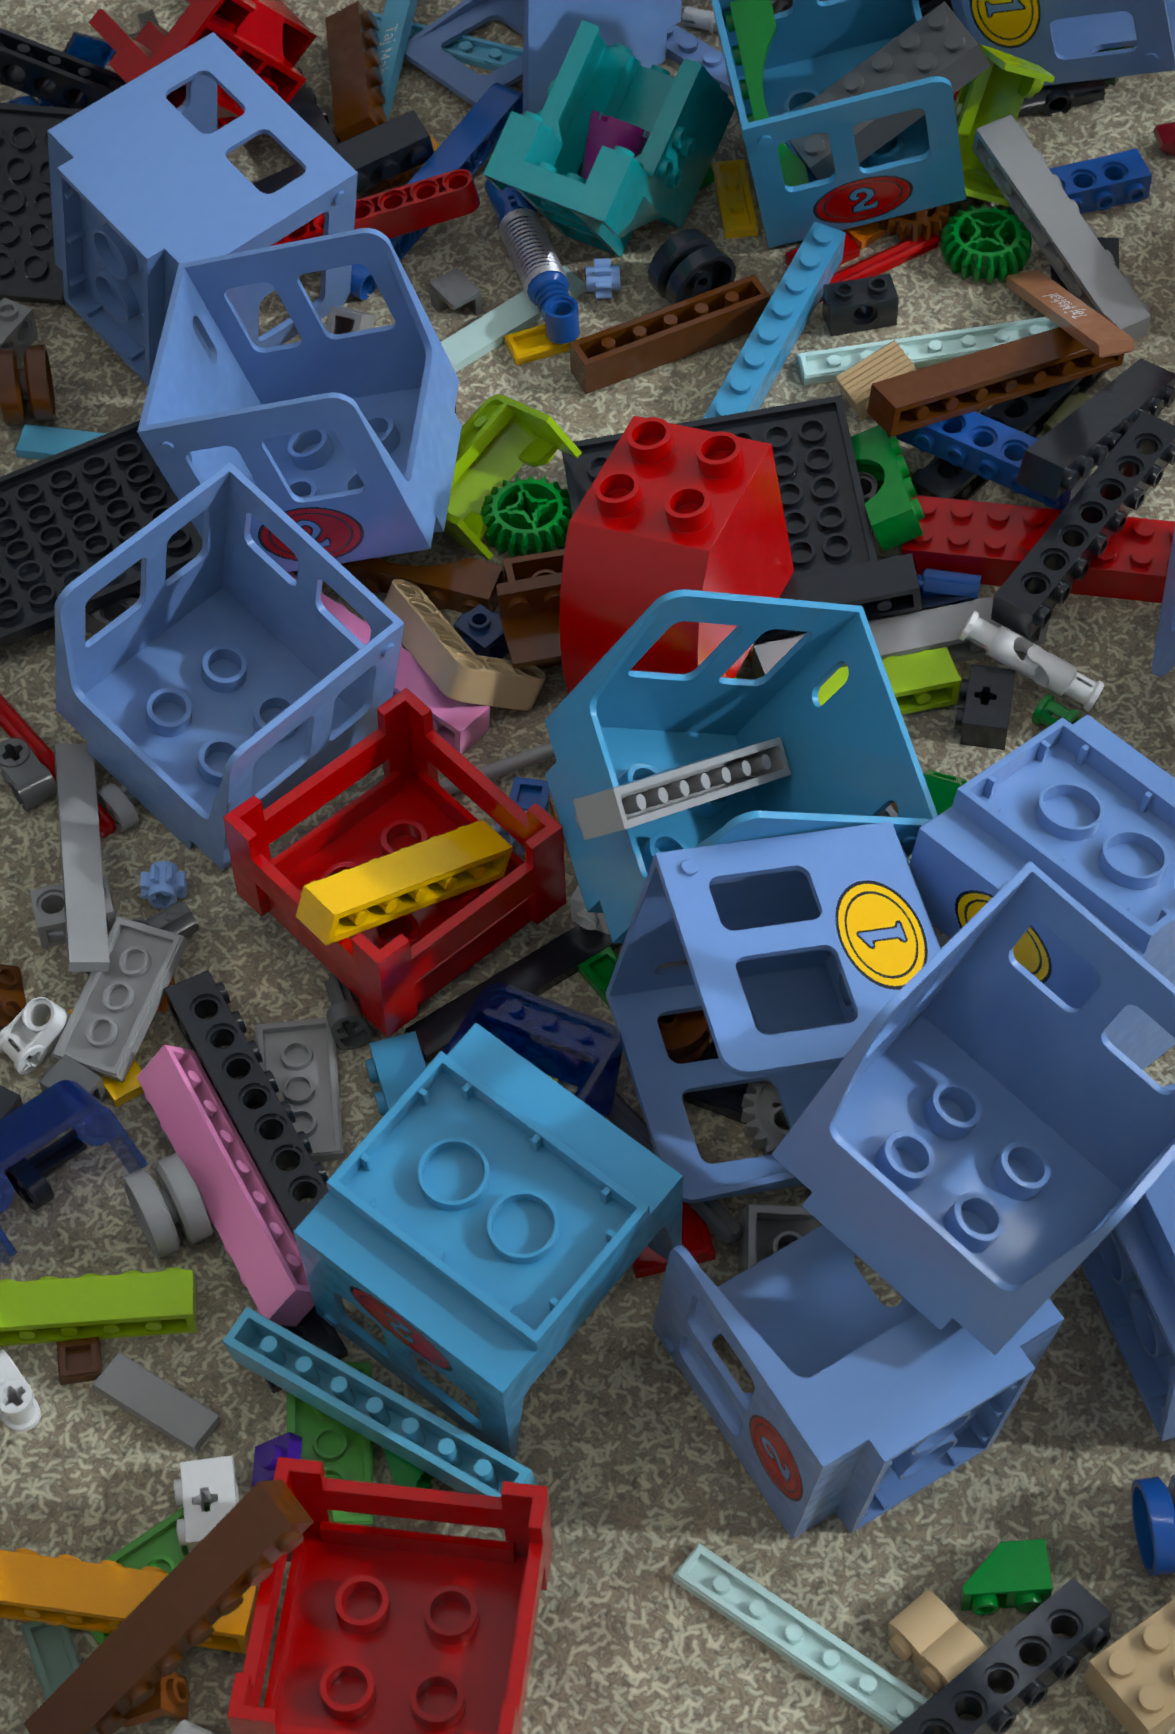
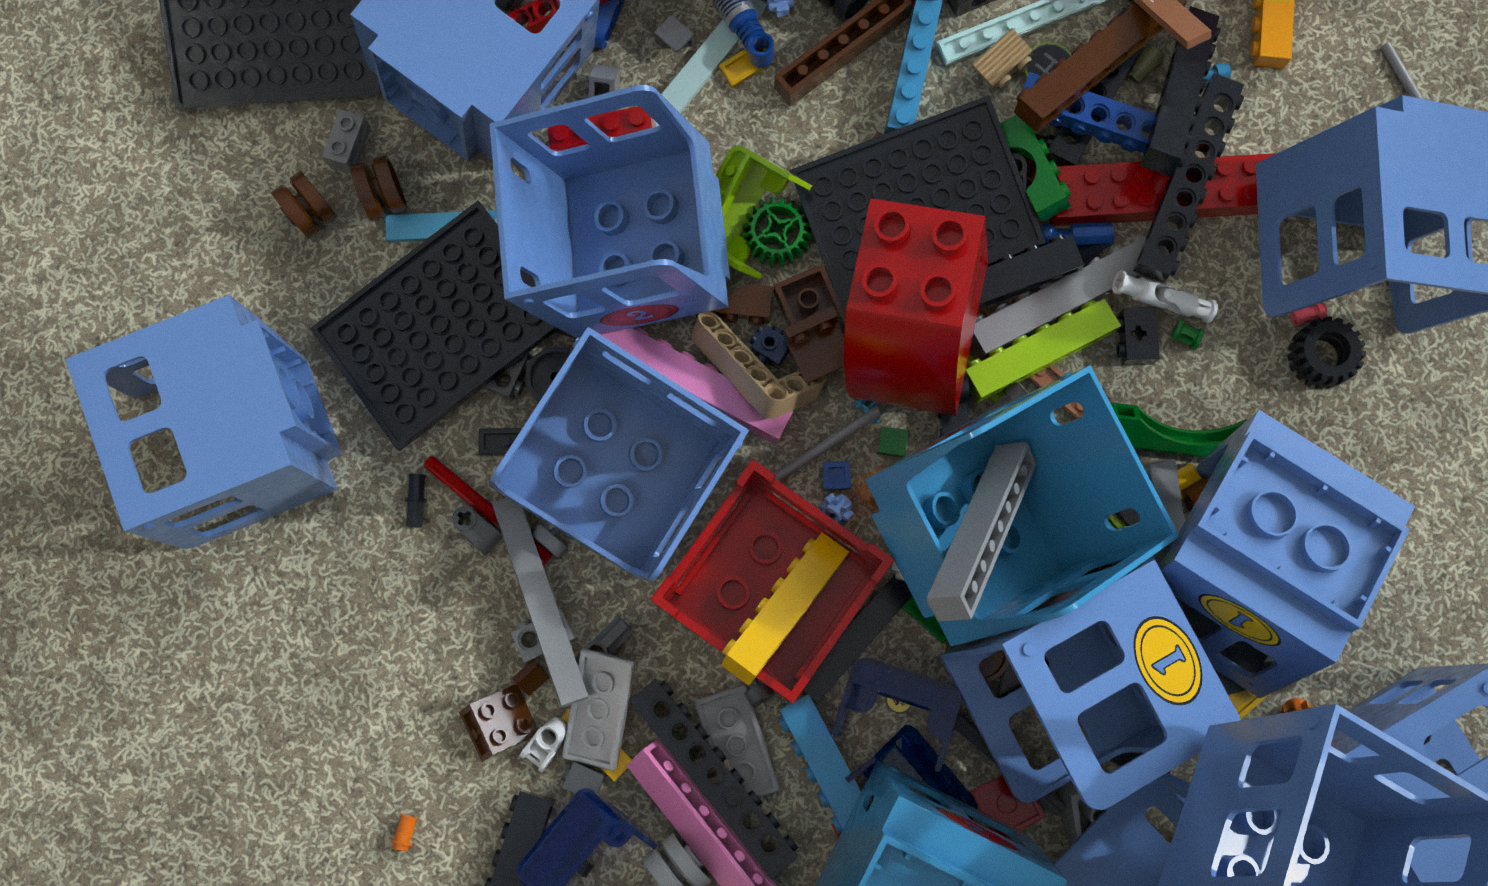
camera: 10 degrees left, 25 degrees up
(40, 956) = (530, 677): none -> reddish brown tile
(163, 884) = (600, 602): light blue gear -> none

